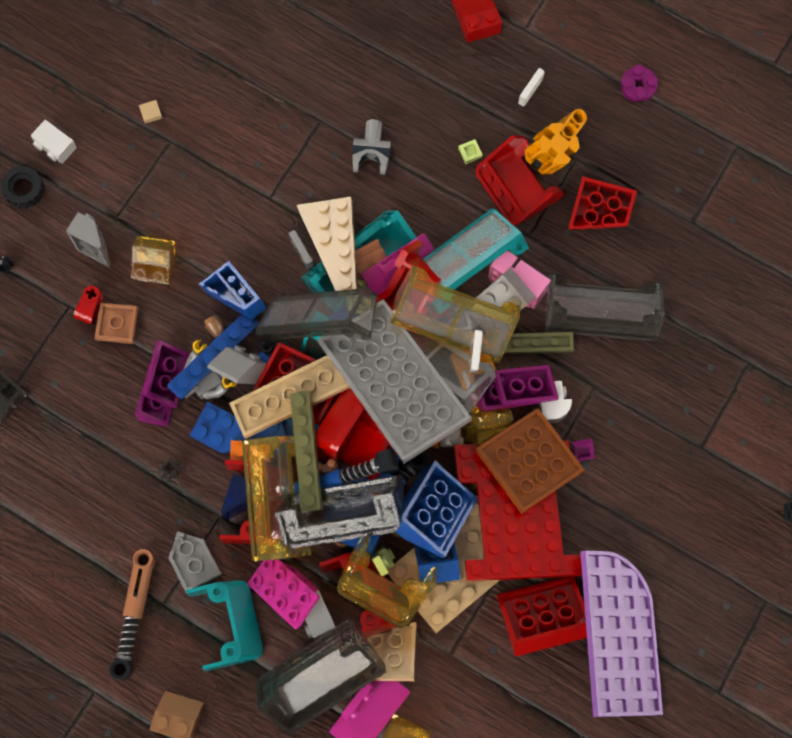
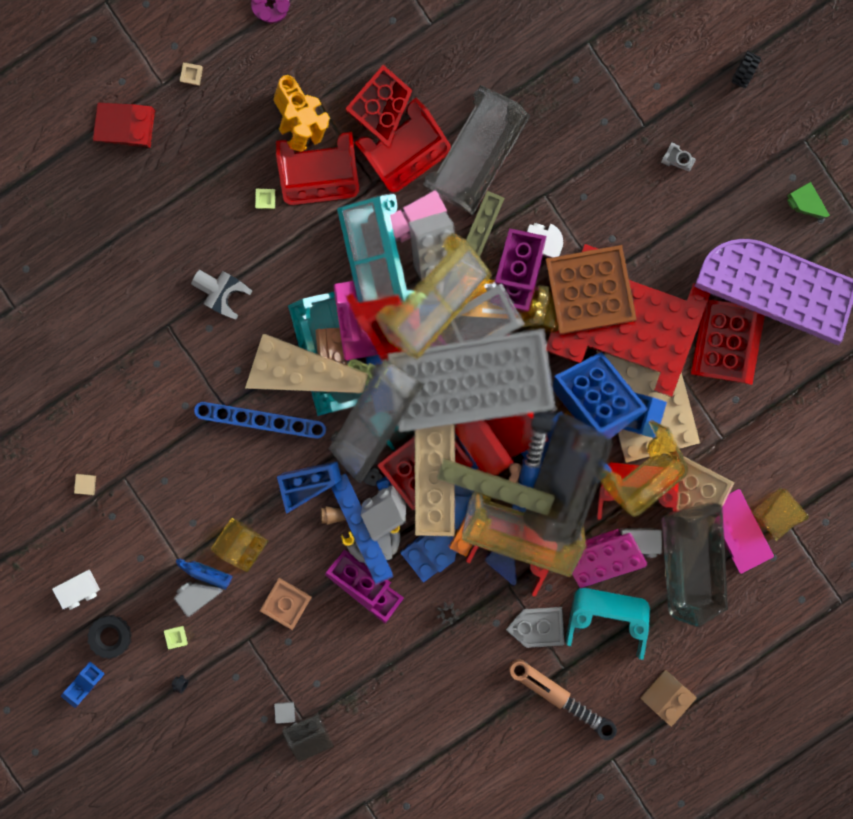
camera: 65 degrees left, 15 degrees up
(15, 366) = (284, 712): none -> light grey tile
(45, 243) = (175, 637): none -> yellowish green tile
(88, 308) = (260, 624): red piece -> none
(114, 241) = (205, 573): none -> blue tile
(270, 221) = (251, 420): none -> blue beam
(300, 249) = (292, 403): light grey tile -> none
(383, 559) = (619, 462): yellowish green slope -> none
(475, 351) = (478, 295): white tile -> none
(531, 87) = (228, 109): white tile -> none
(546, 47) = (191, 74): none -> tan tile
(572, 251) = (413, 149): none -> red windscreen
(583, 450) = (600, 235): magenta plate -> none
(689, 489) = (675, 155): none -> light grey plate
(711, 628) = (807, 202): none -> bright green slope

